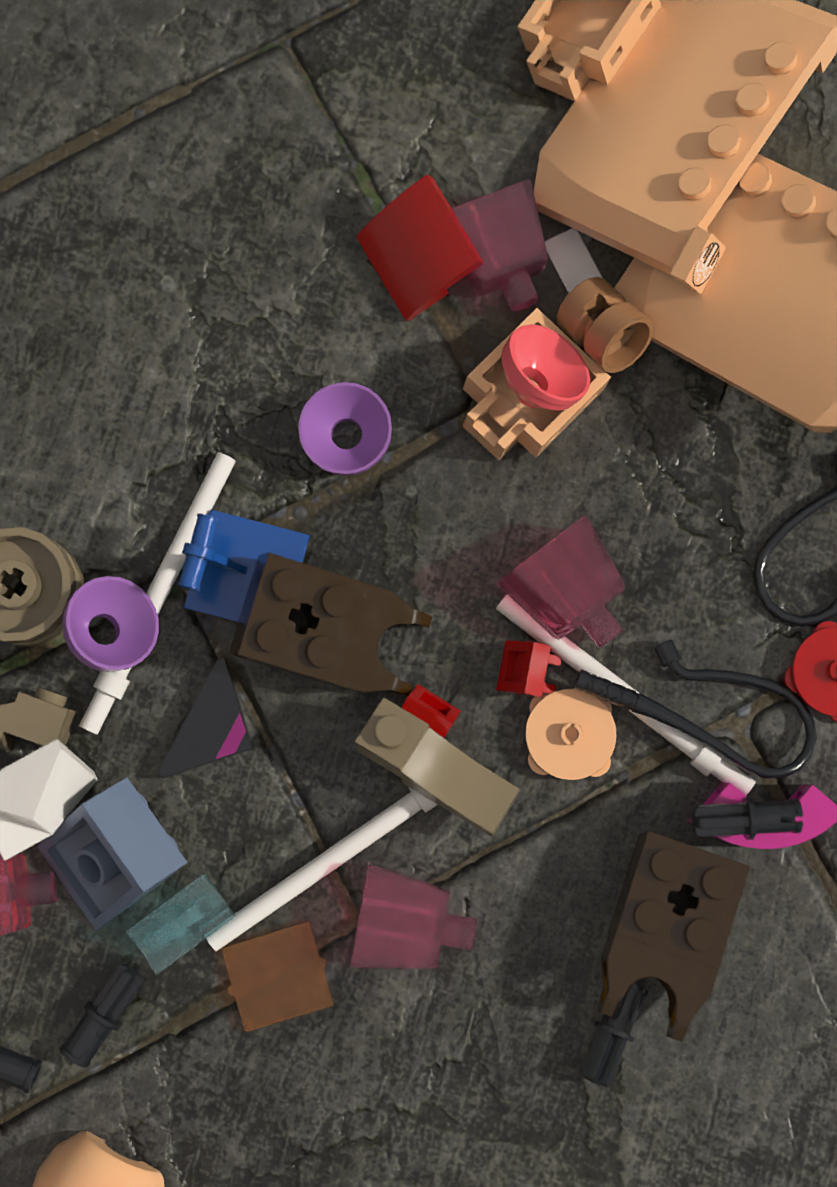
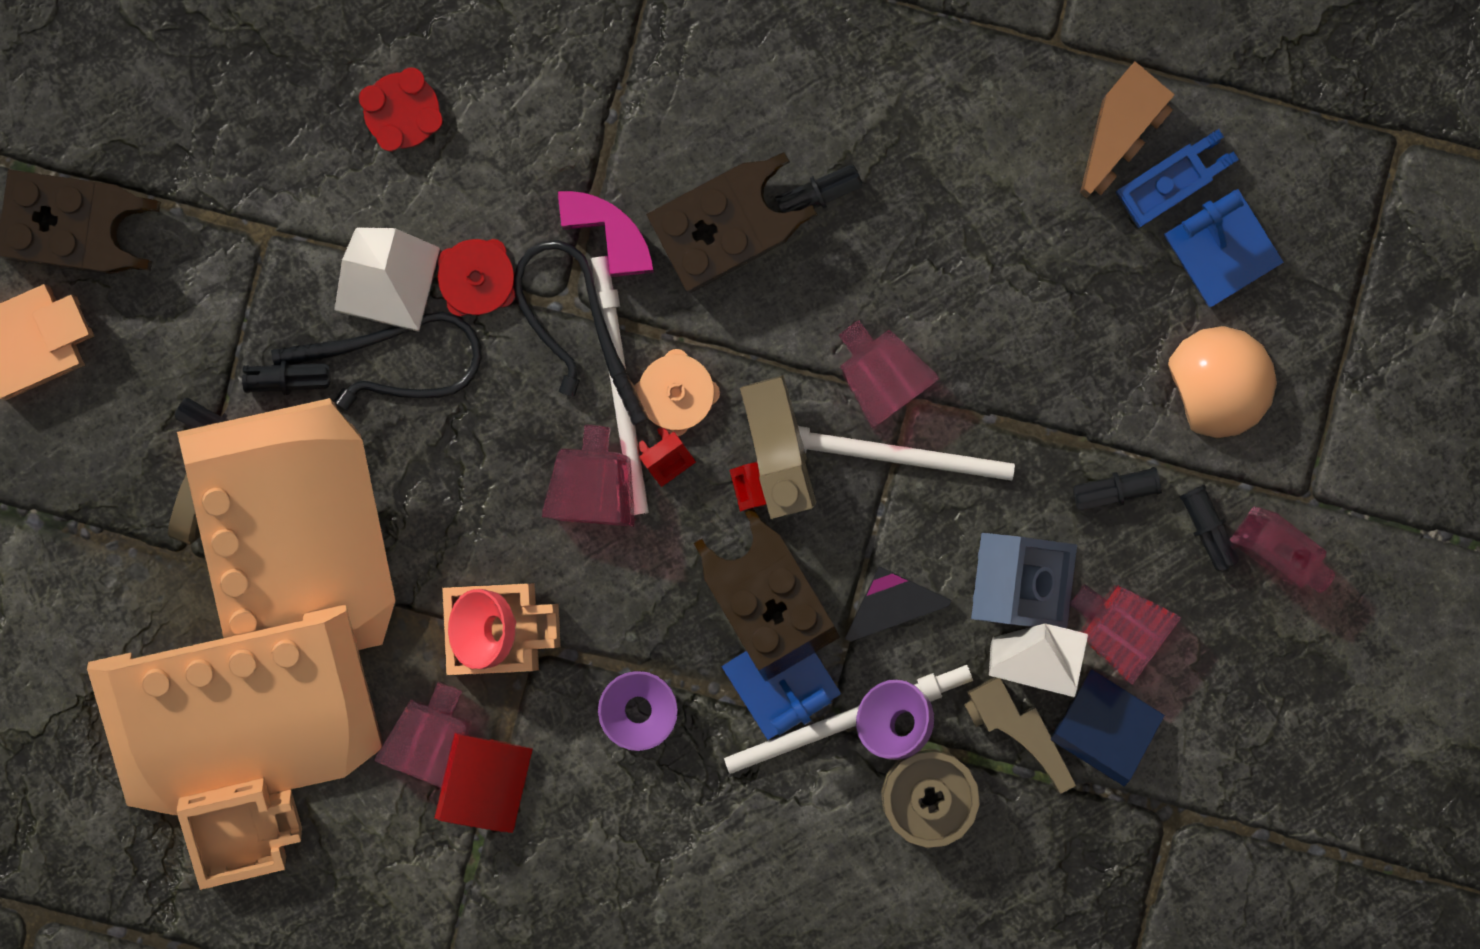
camera: 145 degrees left, 5 degrees up
(180, 923) = (1019, 499): clear light blue hips -> none
(277, 976) = (991, 414): clear orange piece -> none
(571, 258) = (393, 676): white sticker -> none
(604, 324) = (415, 624): medium nougat wheel -> none
(697, 259) = (328, 605): light nougat tile -> none
(747, 818) = (621, 244): black axle -> none

